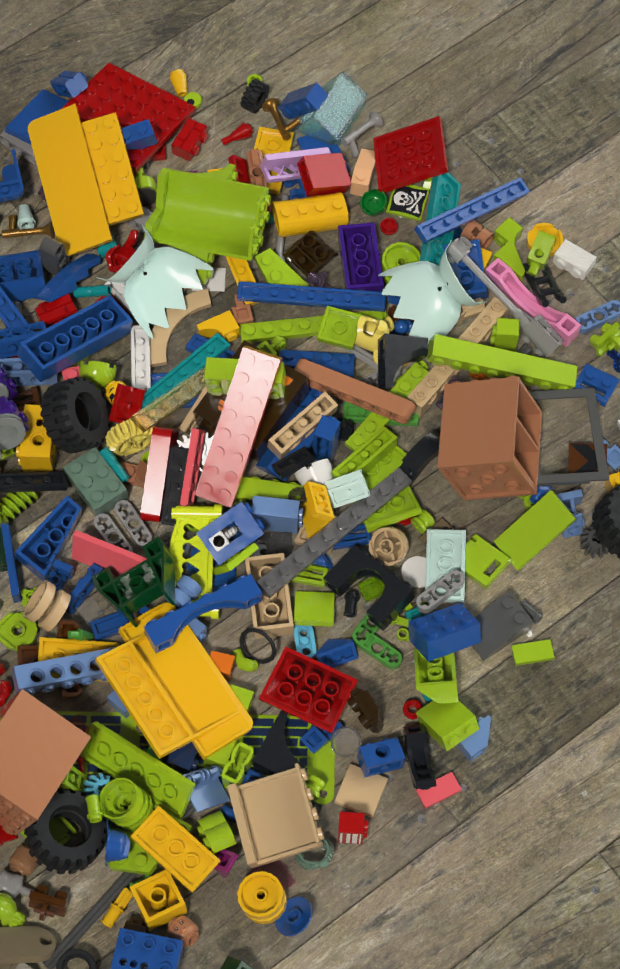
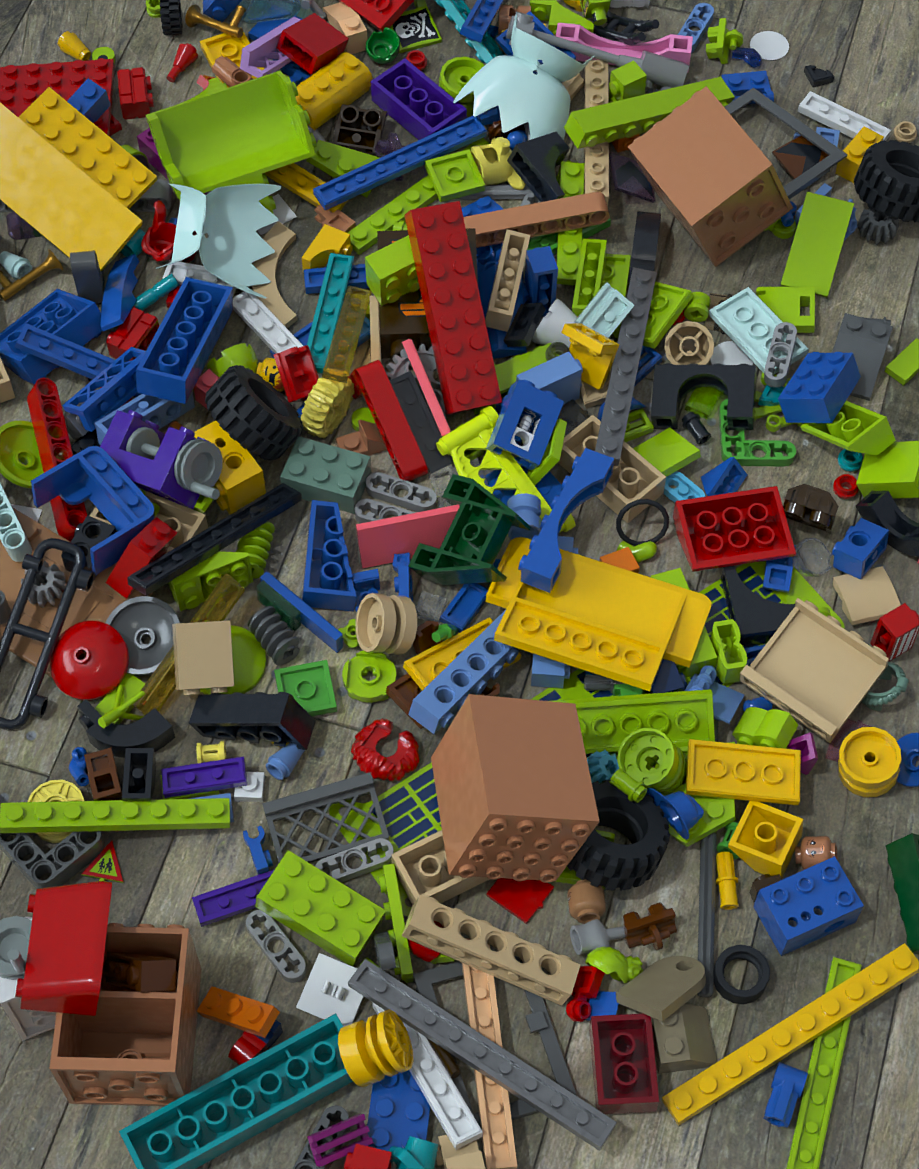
camera: 35 degrees left, 5 degrees down
(115, 466) = (324, 437): teal piece -> none

